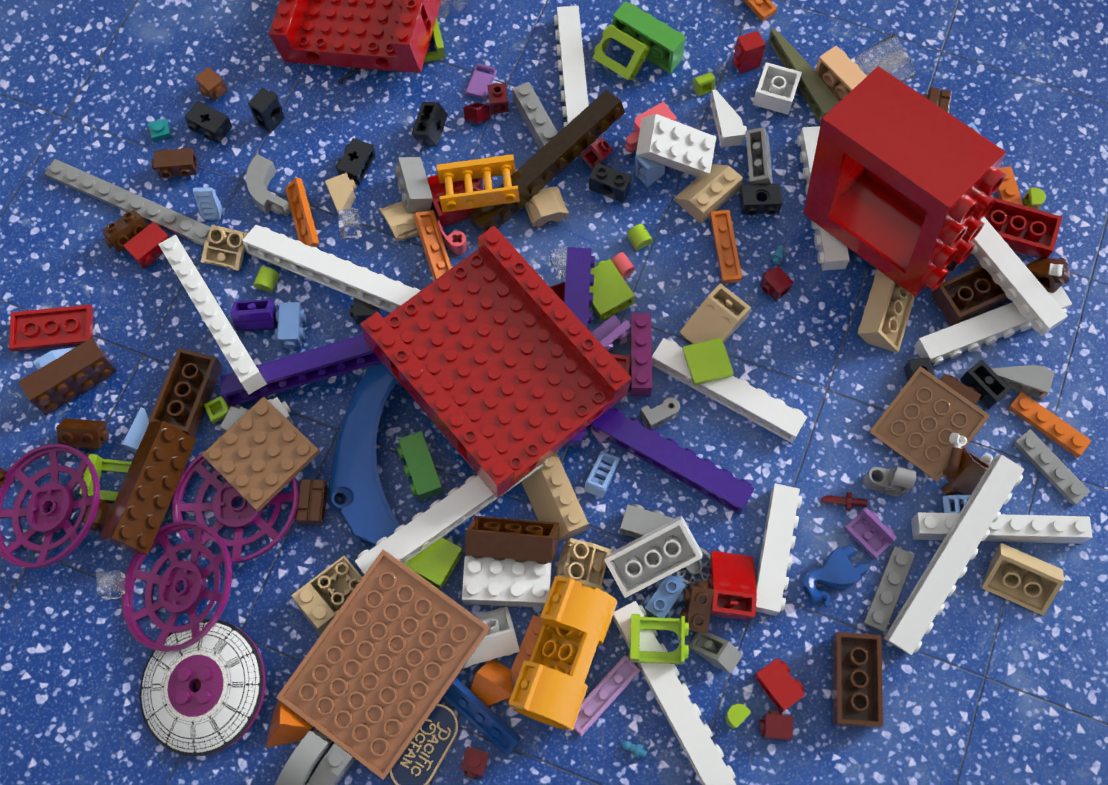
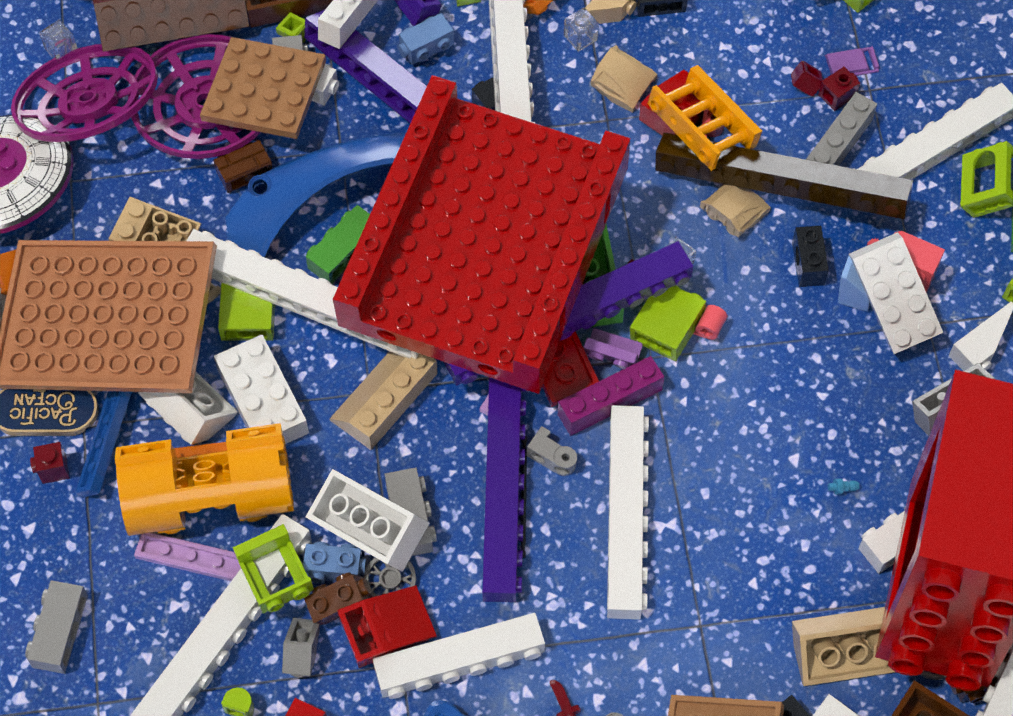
camera: 60 degrees right, 5 degrees down
(413, 184) = (666, 60): light grey brick -> none
(429, 124) = (754, 38): black brick -> none
(432, 243) = (613, 113): orange plate -> none
(455, 241) = (627, 131): coral panel -> none
(492, 683) = (143, 429): orange slope -> none
(512, 539) = (306, 369): reddish brown brick -> none
(583, 562) = (320, 455): tan slope -> none
(595, 485) = (434, 438): light blue slope -> none
(596, 152) = (838, 220): dark red brick -> none
(637, 750) = (148, 620): dark azure piece -> none
(639, 237) = (763, 324): lime brick -> none
(707, 361) = (641, 466): lime tile -> none
(709, 191) = (874, 370): tan slope -> none
(716, 317) = (705, 454): tan slope -> none
(725, 246) = (813, 421): orange plate -> none
(768, 193) = (901, 415): black brick -> none
(776, 283) = (799, 499): dark red brick -> none

